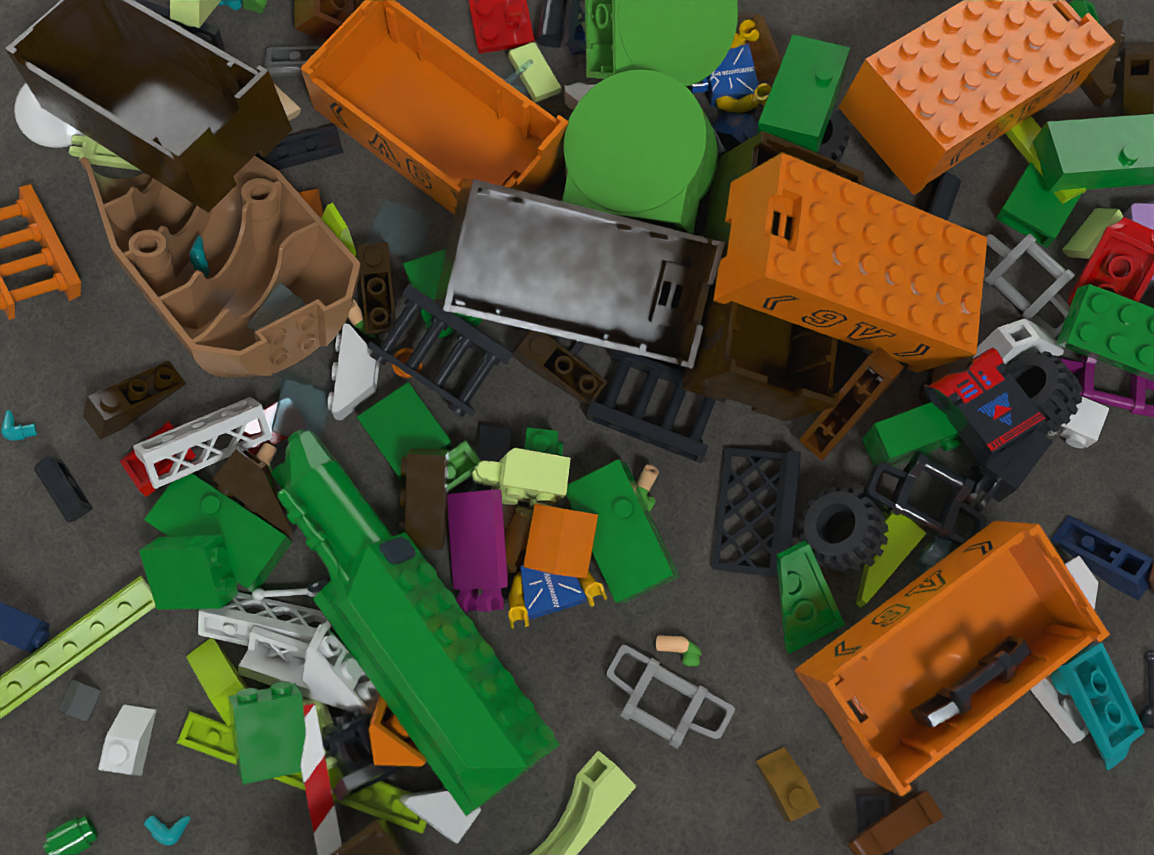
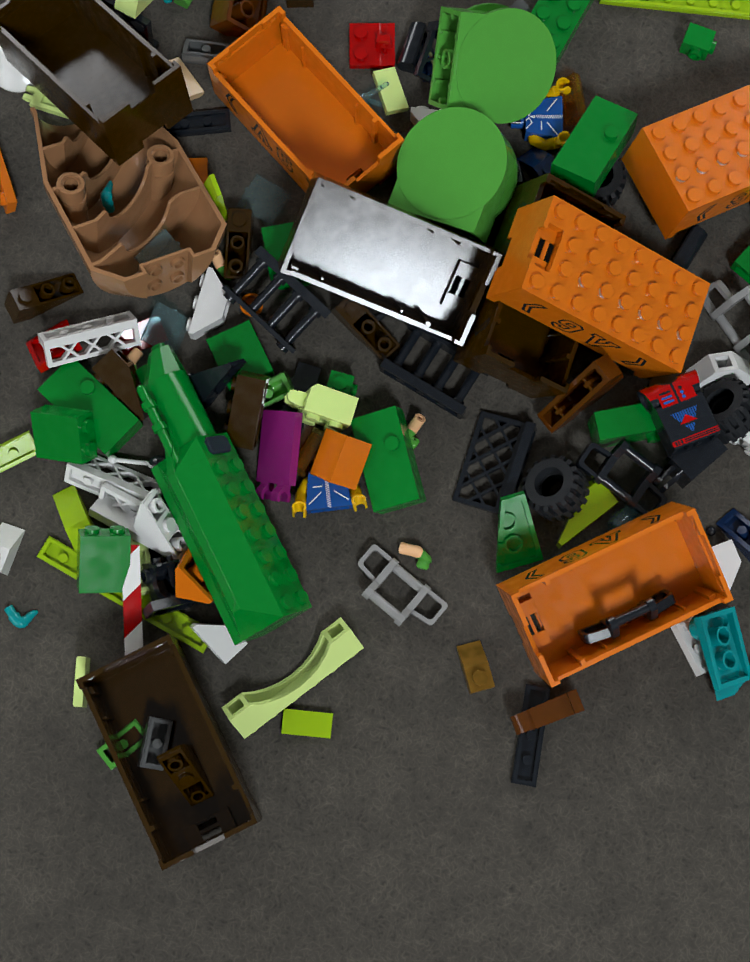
camera: 15 degrees right, 5 degrees up
(375, 468) = (213, 381): none -> black slope

